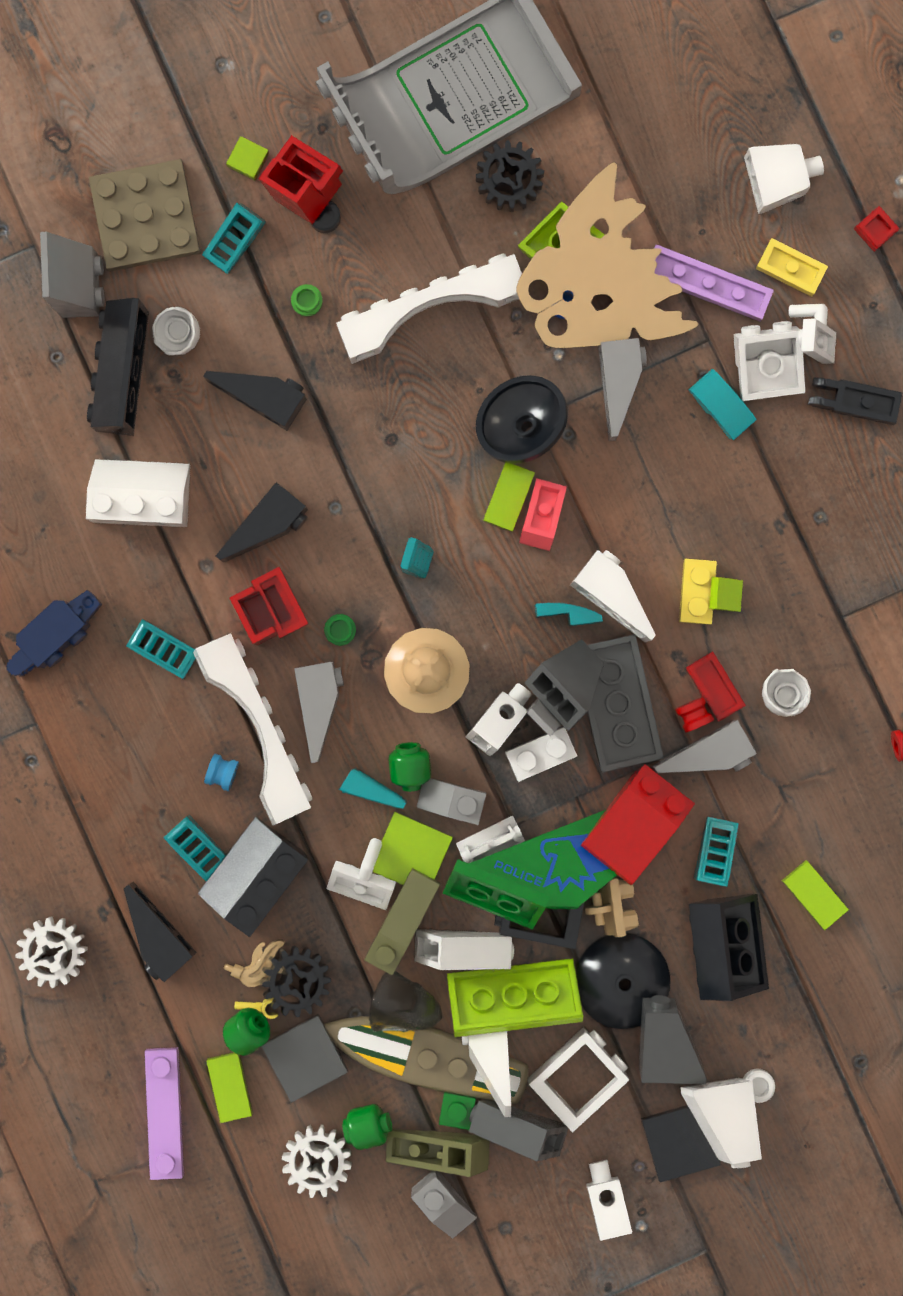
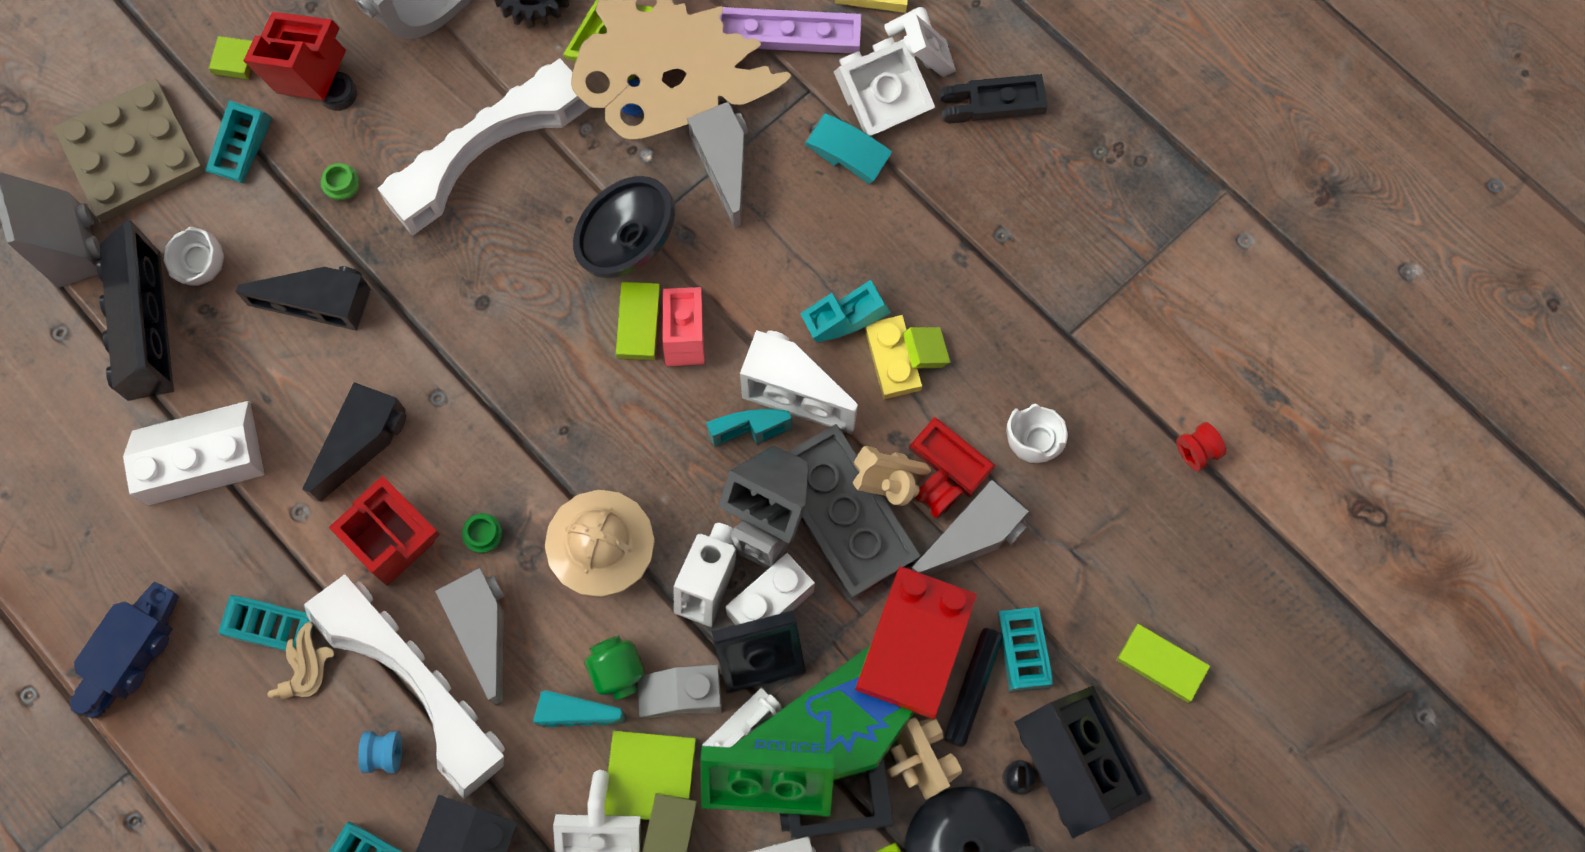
camera: 15 degrees left, 15 degrees down
(183, 688) = (307, 666): none -> tan piece
(416, 558) = (547, 417): teal slope -> none
(519, 793) = (759, 651): none -> black tile
(661, 691) = (889, 475): none -> tan hips
(669, 546) = (837, 318): none -> teal slope
(669, 866) = (973, 687): none -> black axle
(673, 938) = (1011, 776): none -> black hinge

